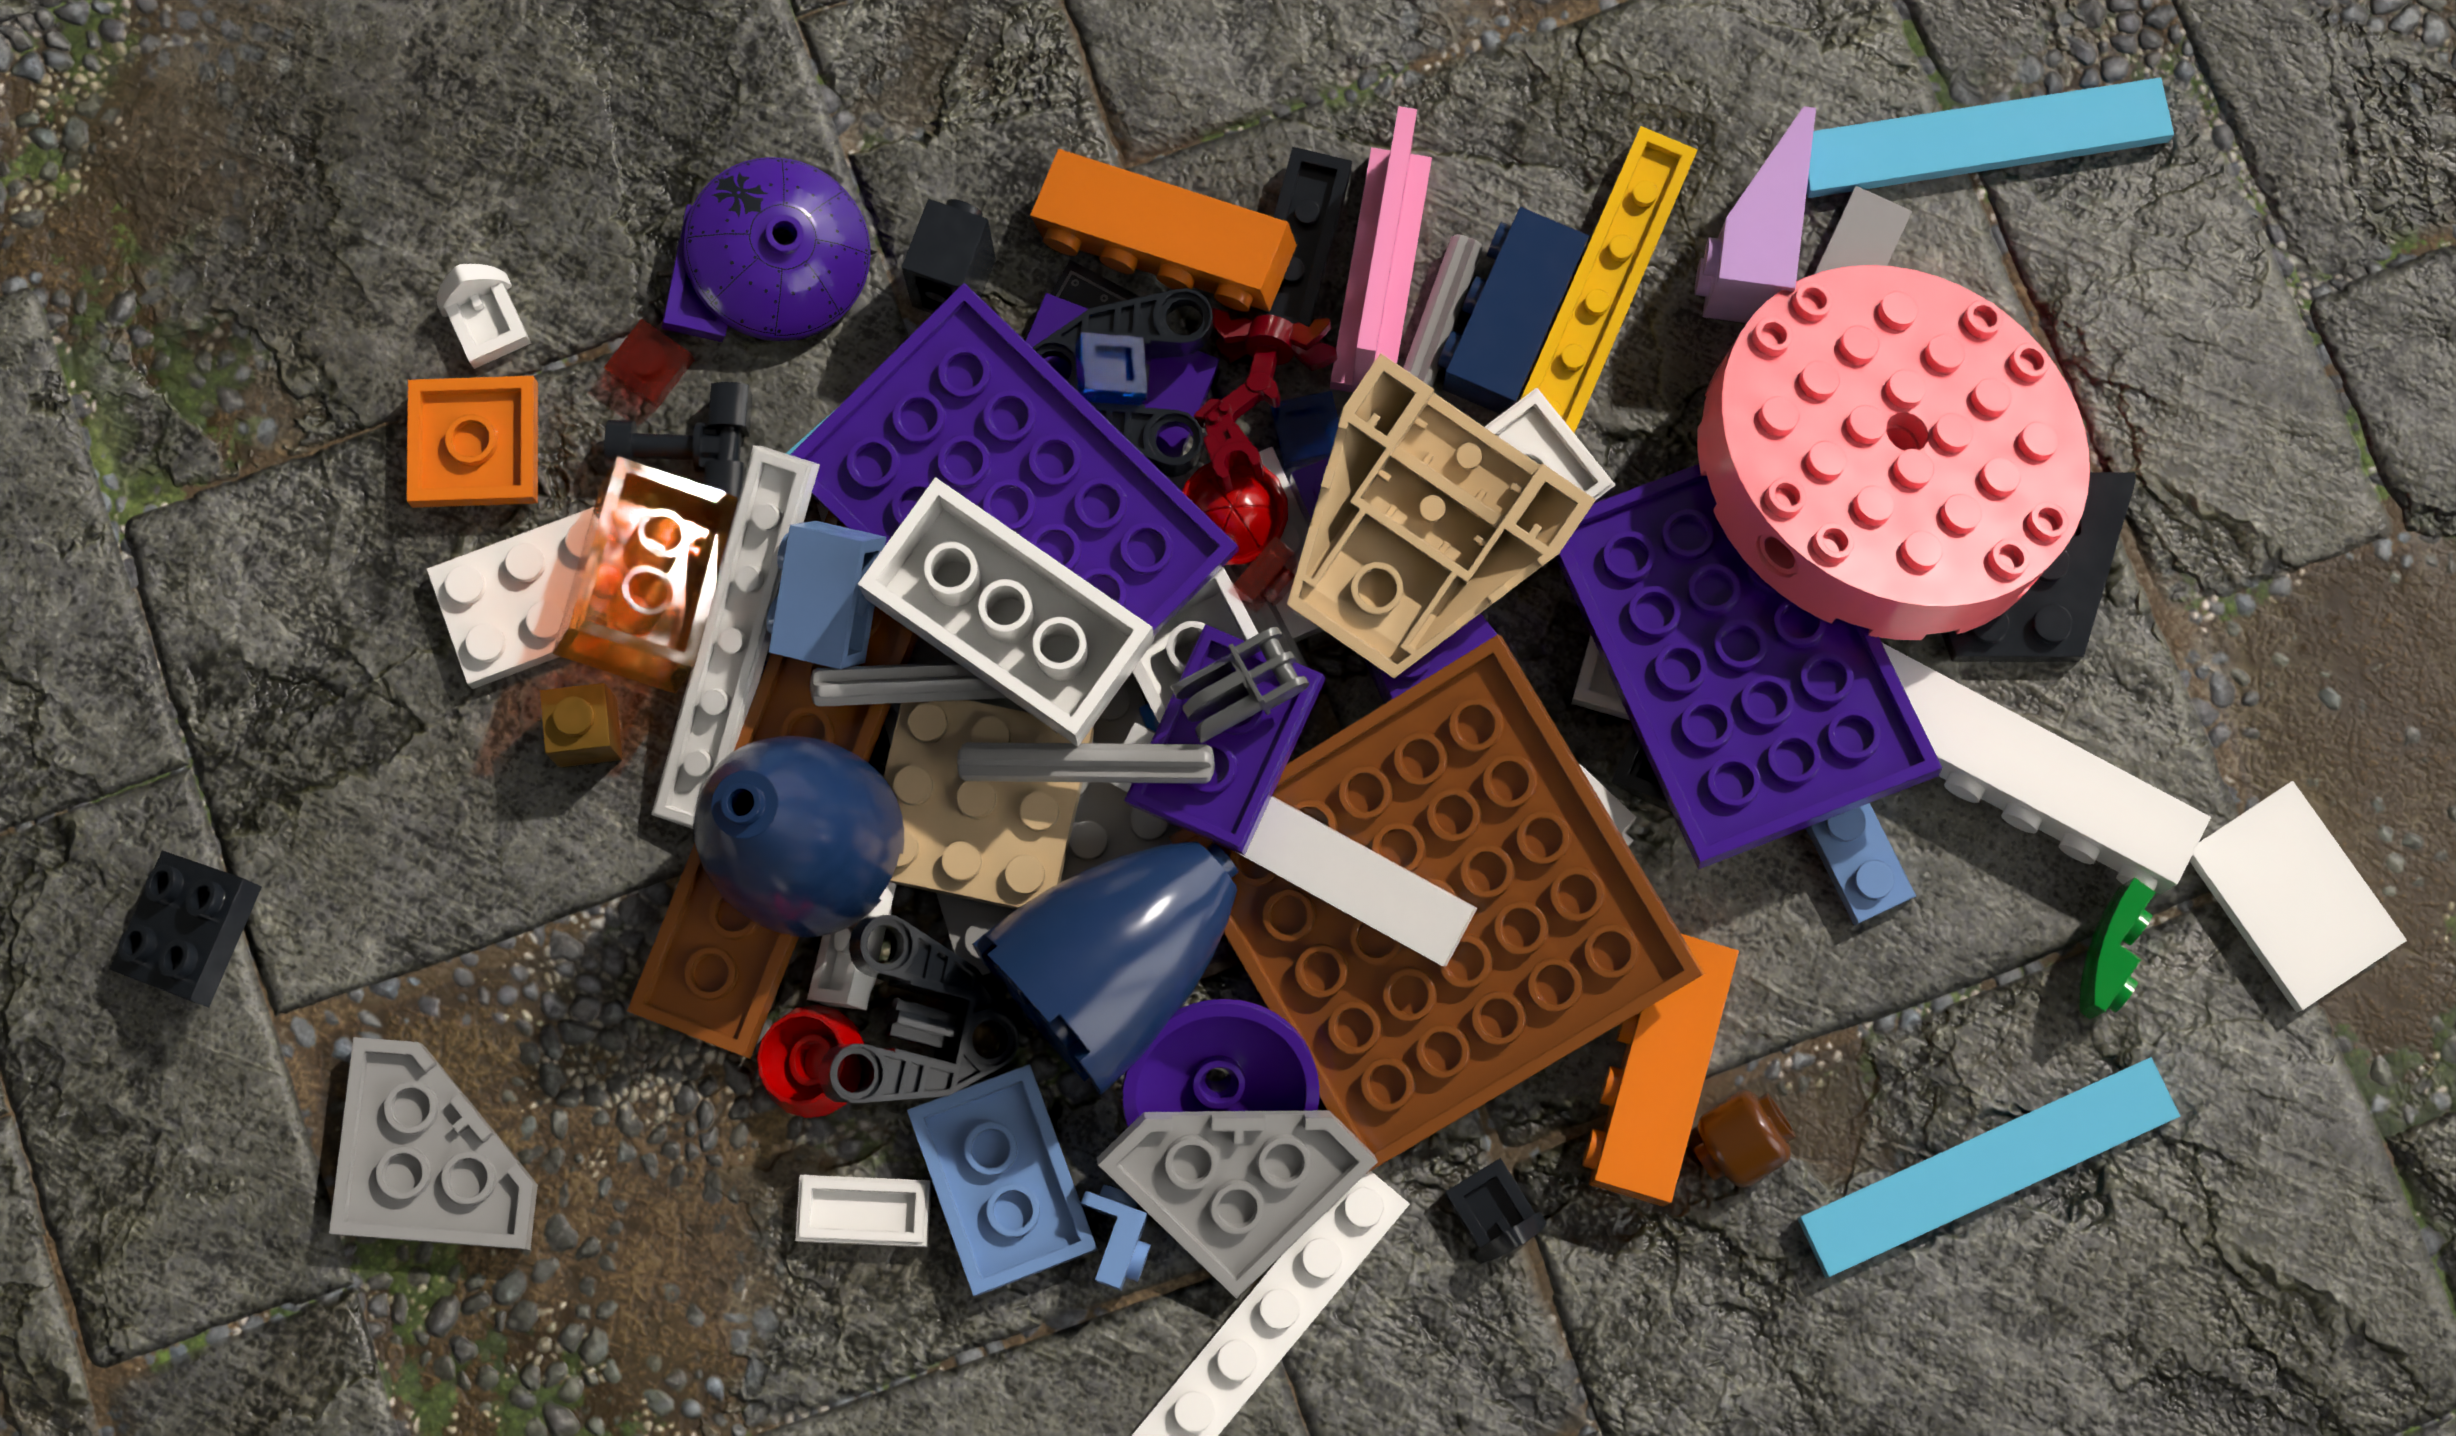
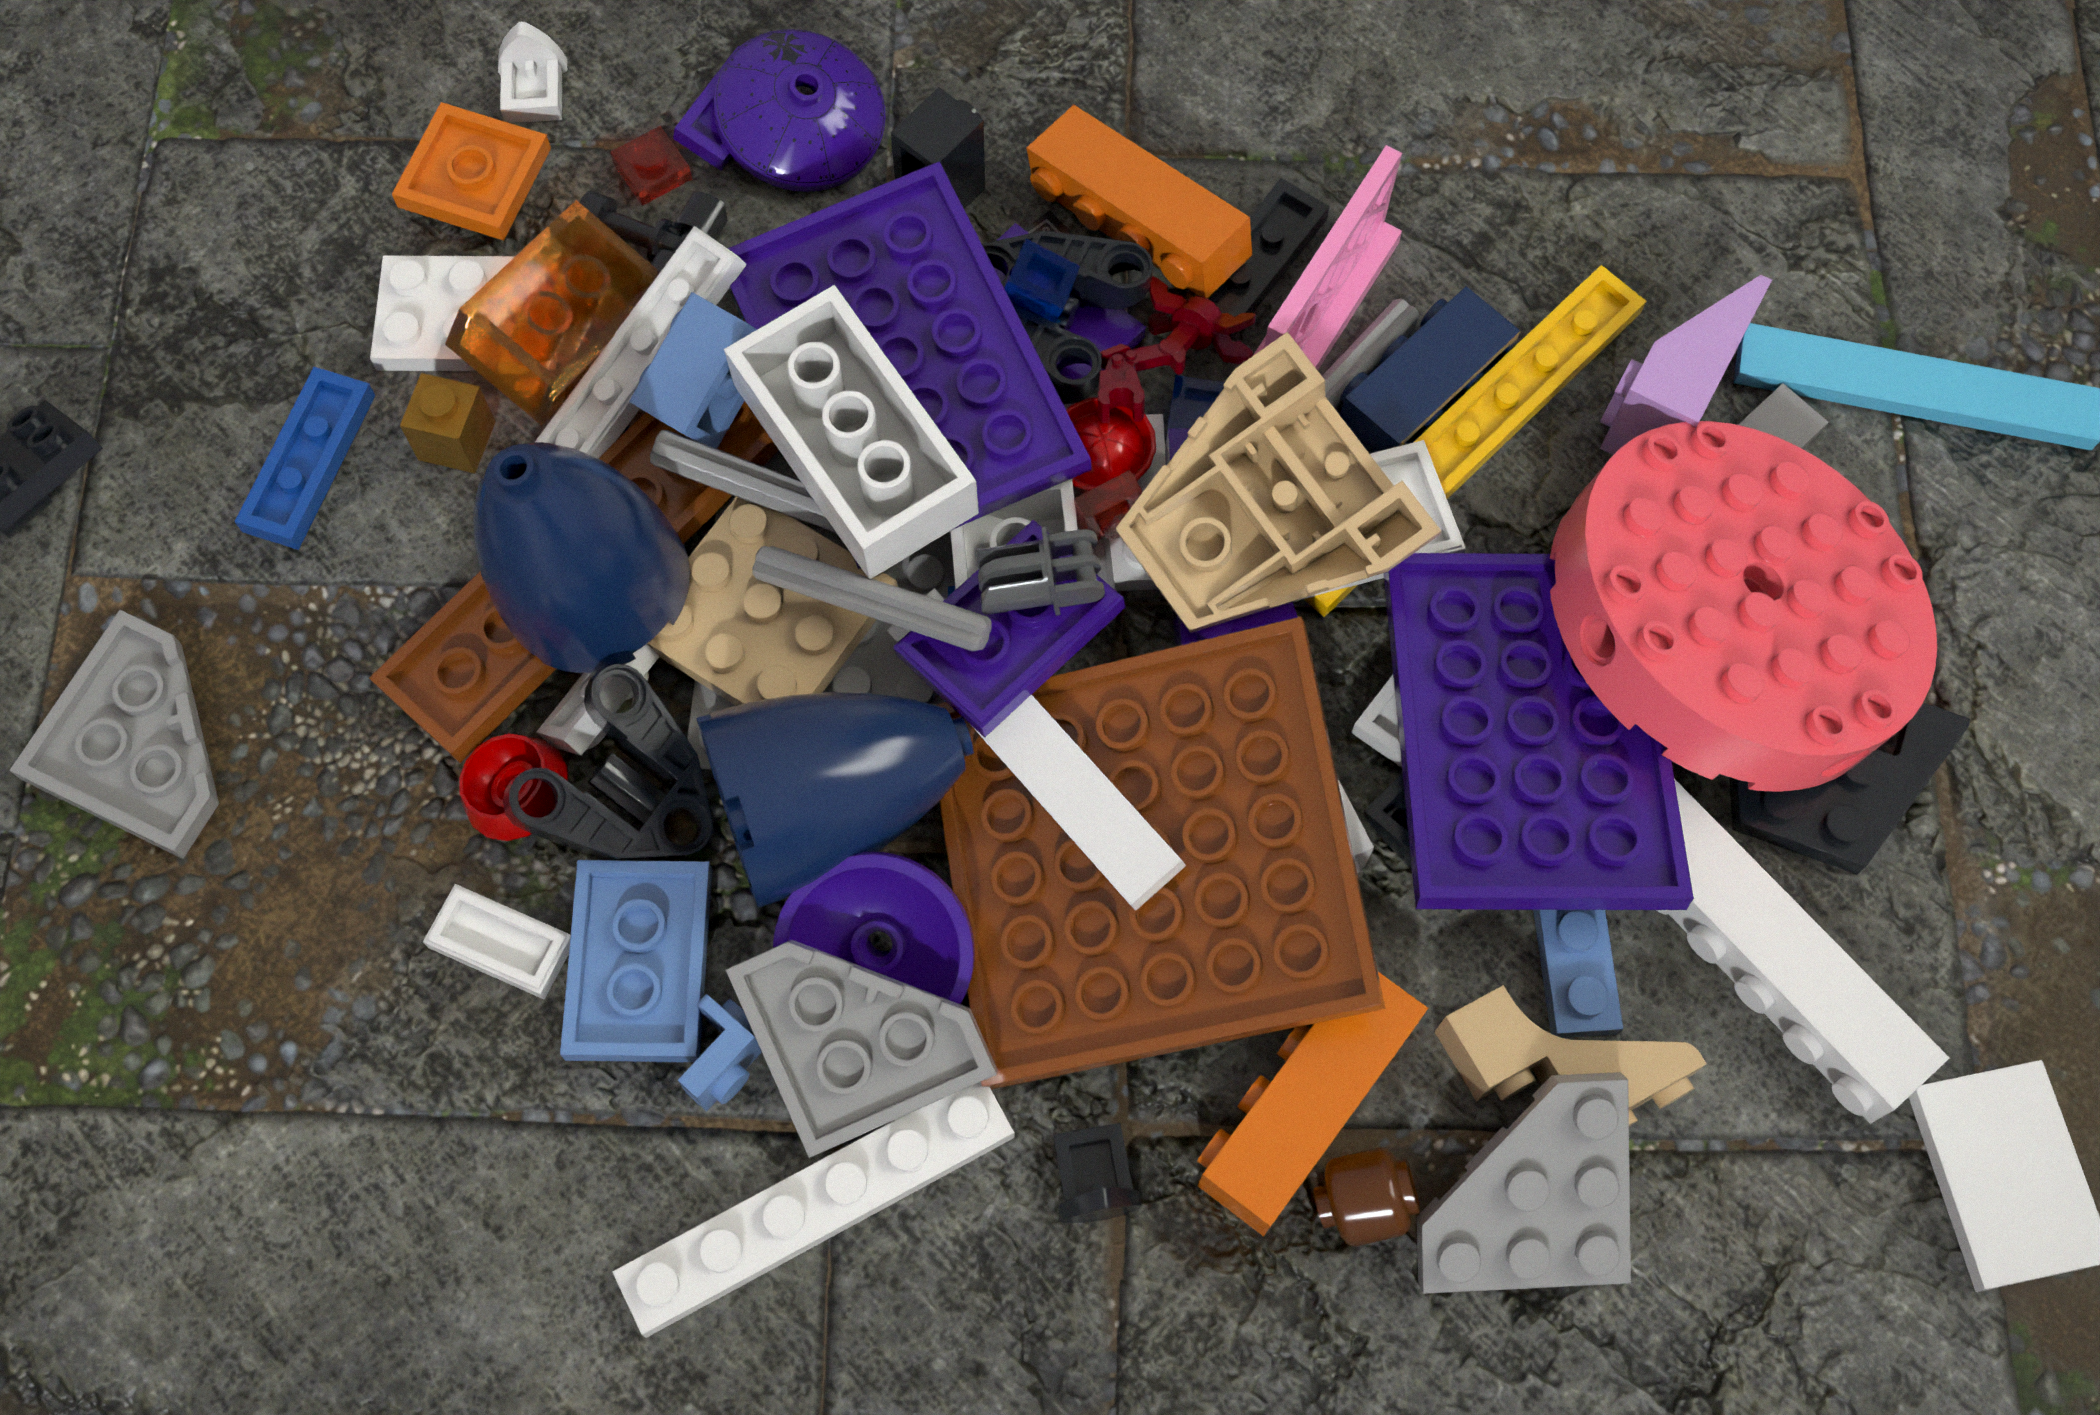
camera: 20 degrees right, 10 degrees down
(454, 811) = (305, 458): none -> blue plate
(1894, 1083) = (1539, 1198): none -> light grey plate
(1902, 959) = (1500, 1047): none -> tan arch
(1988, 1167) = (1607, 1323): medium azure tile -> none
(2109, 965) = (1802, 1160): green slope -> none

